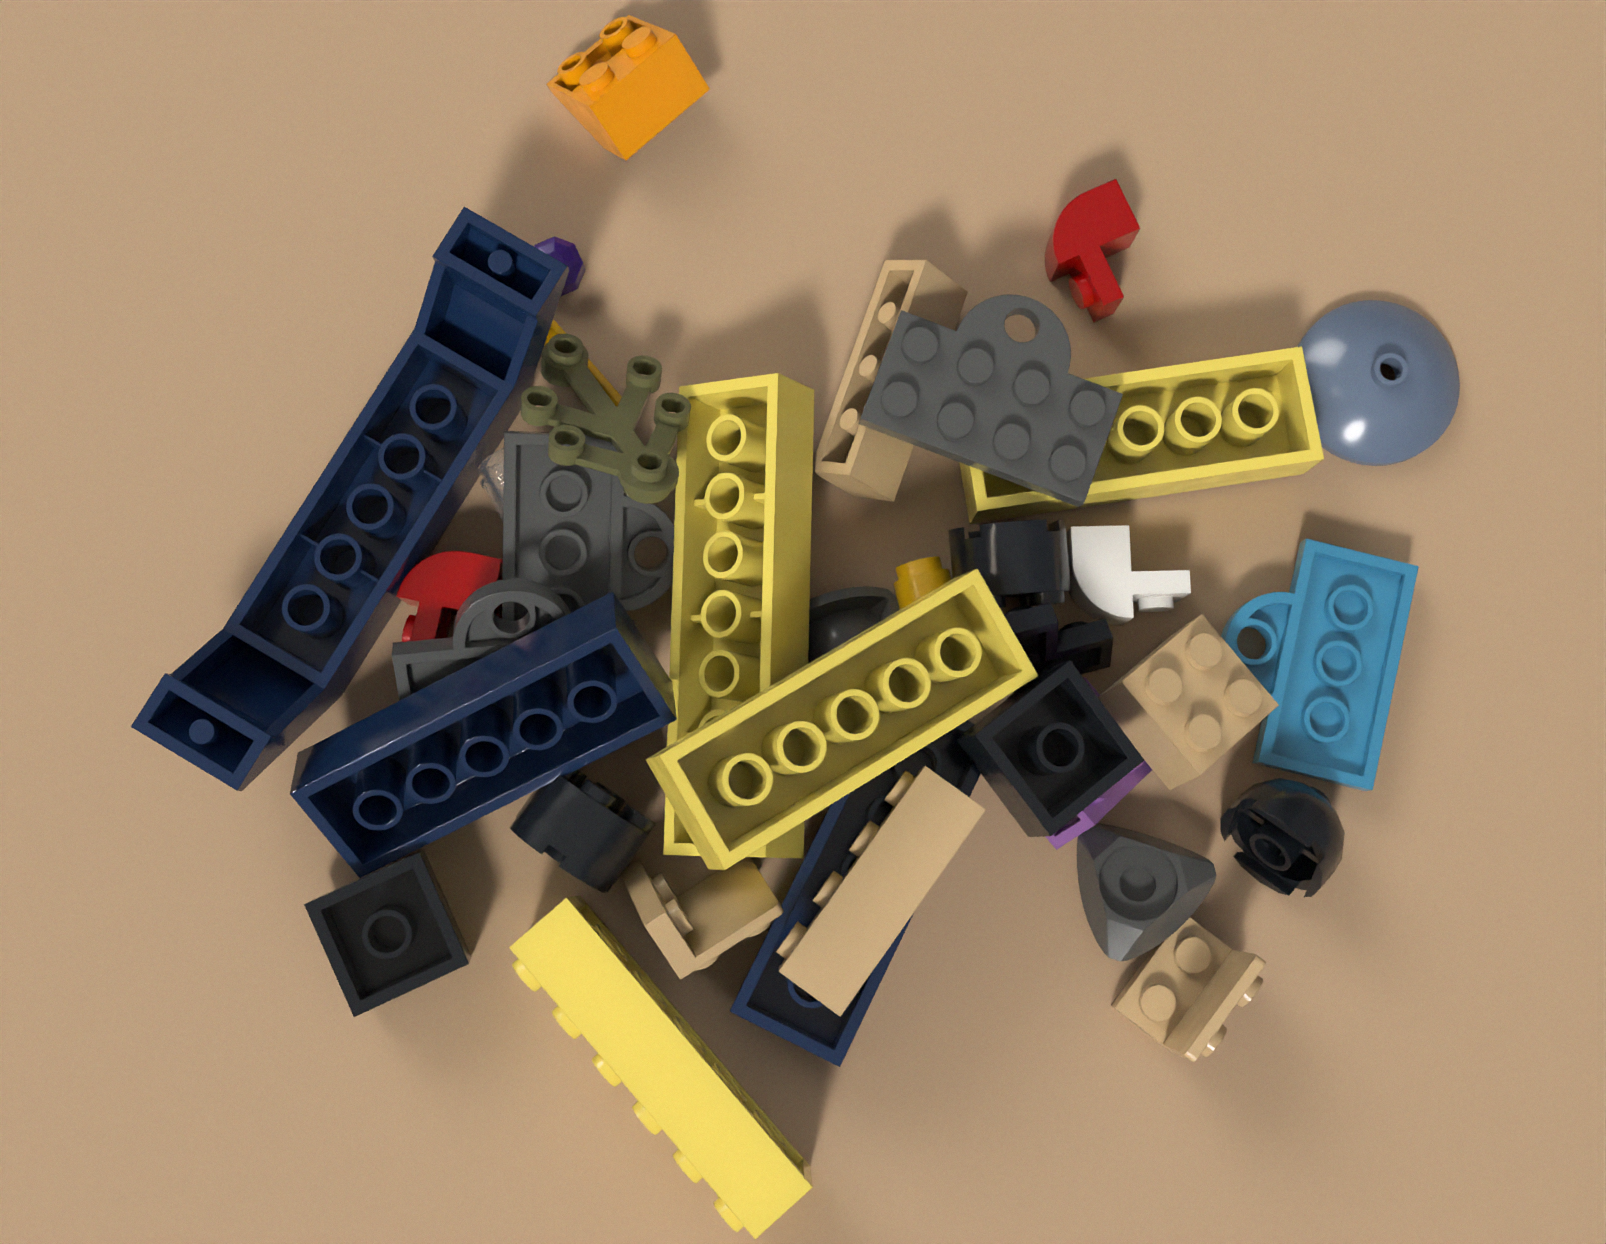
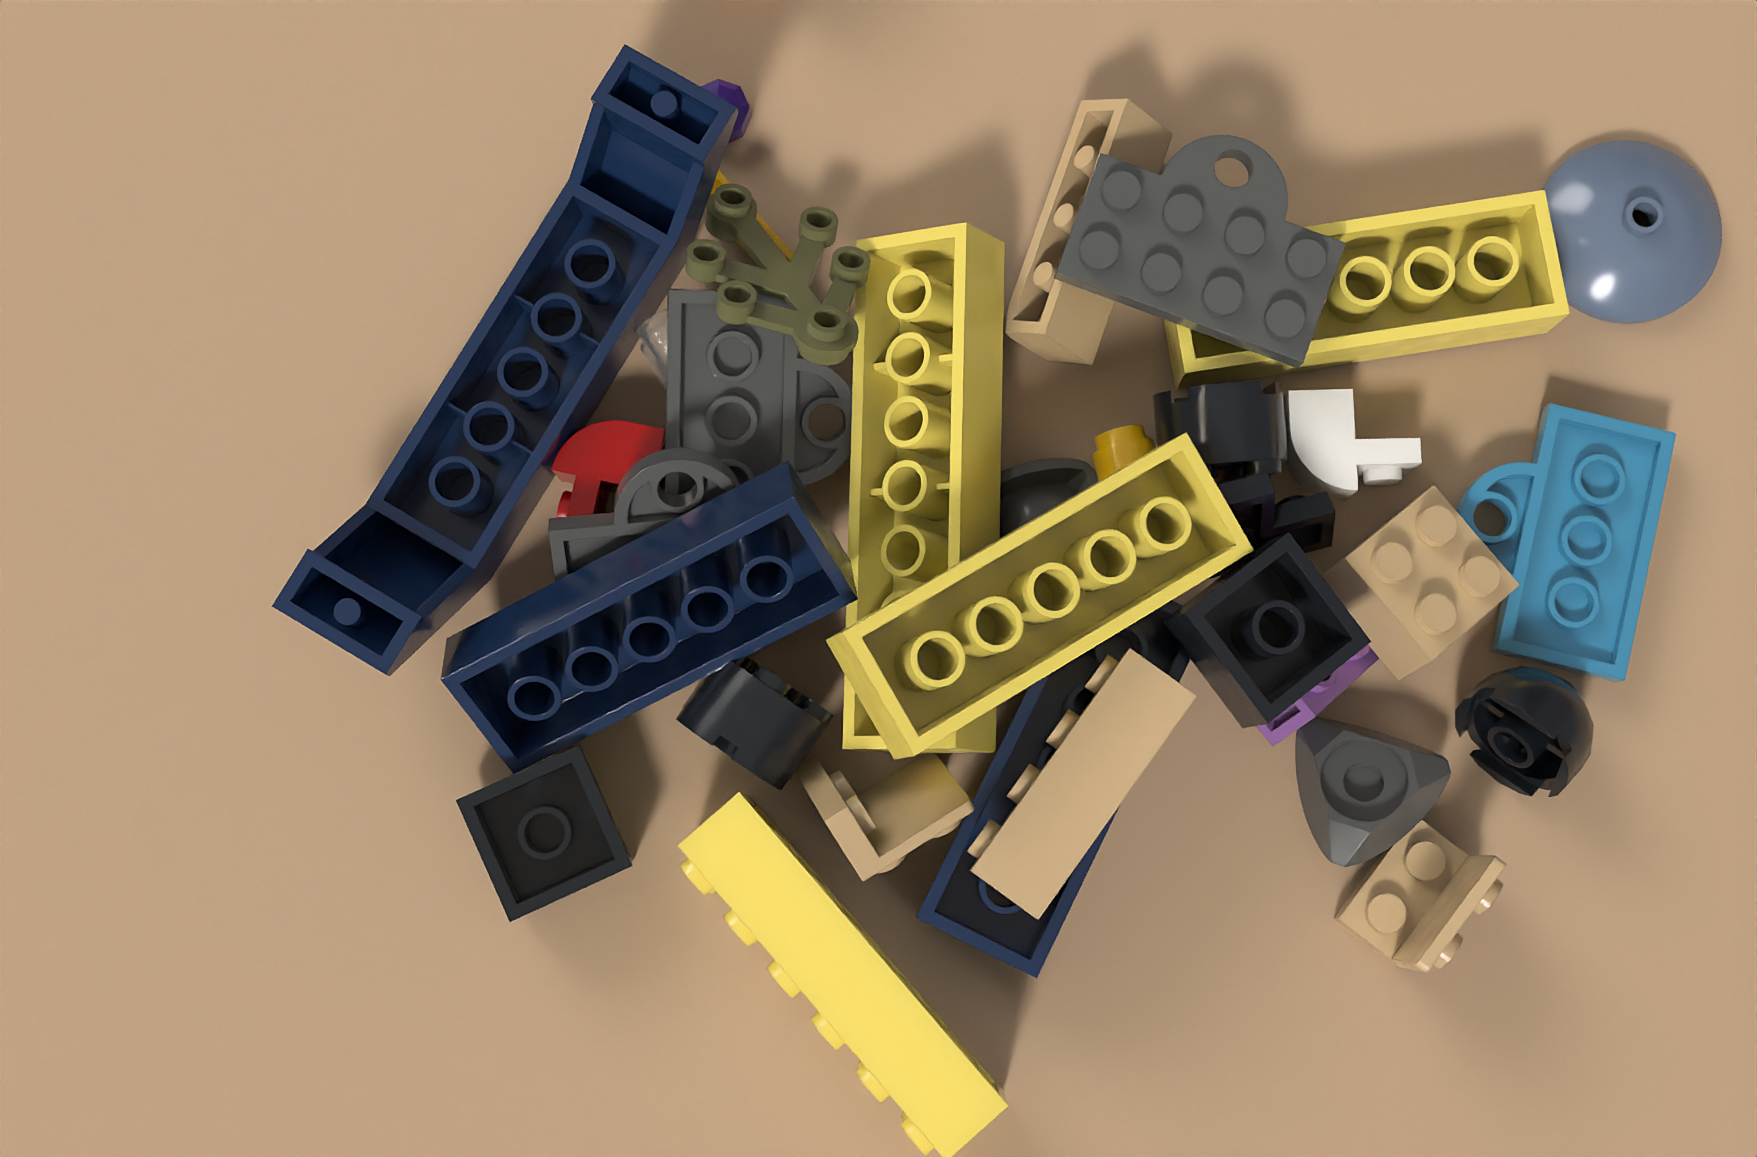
camera: 15 degrees right, 0 degrees up
(1082, 239) = (1301, 72): red brick -> none

